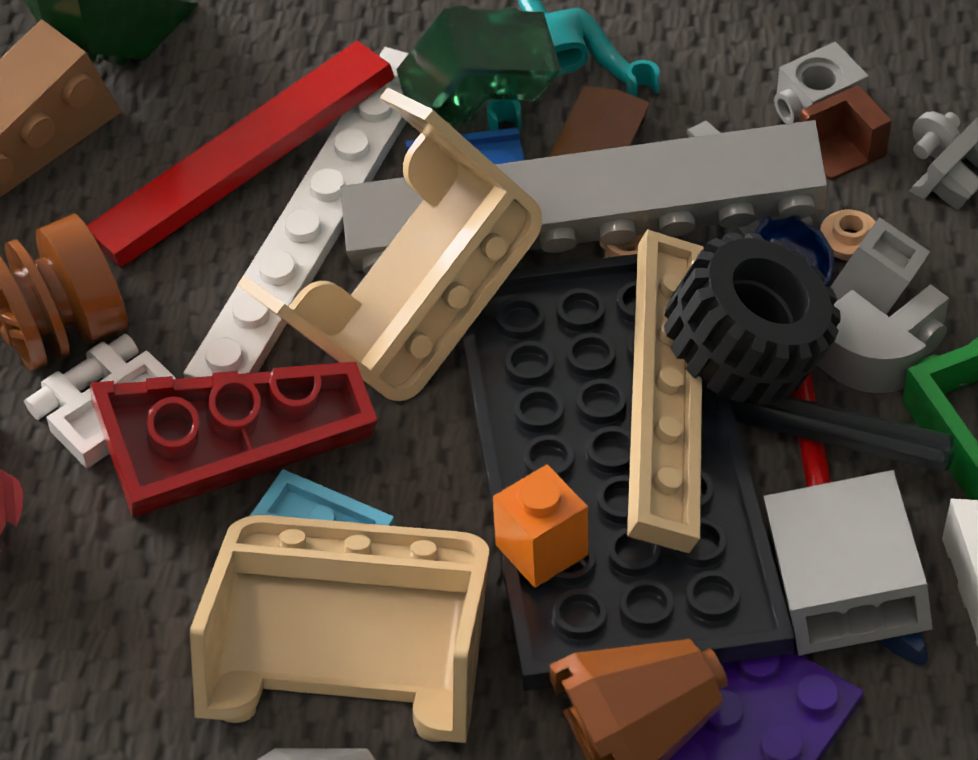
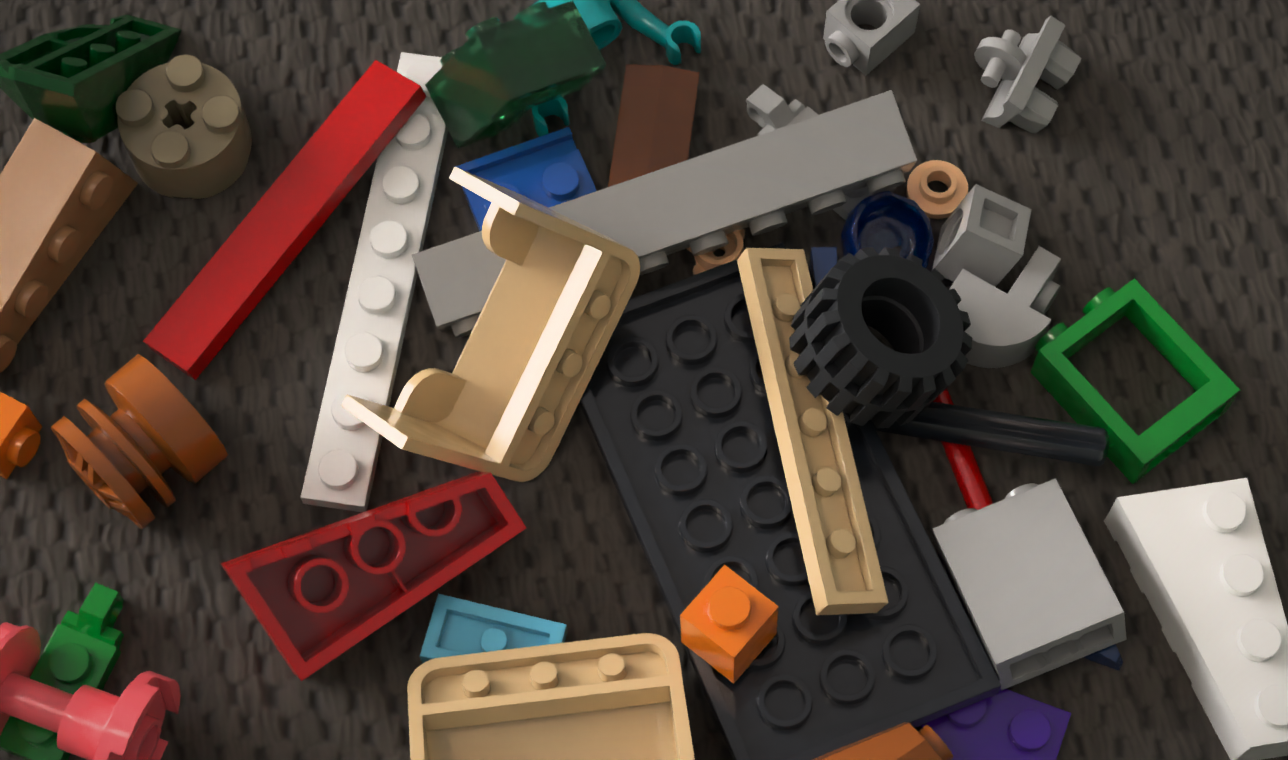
camera: 15 degrees left, 15 degrees up
(76, 420) = (248, 526): white plate -> none
(173, 69) = (185, 129): none -> dark tan brick
(849, 131) = (908, 64): copper panel -> none

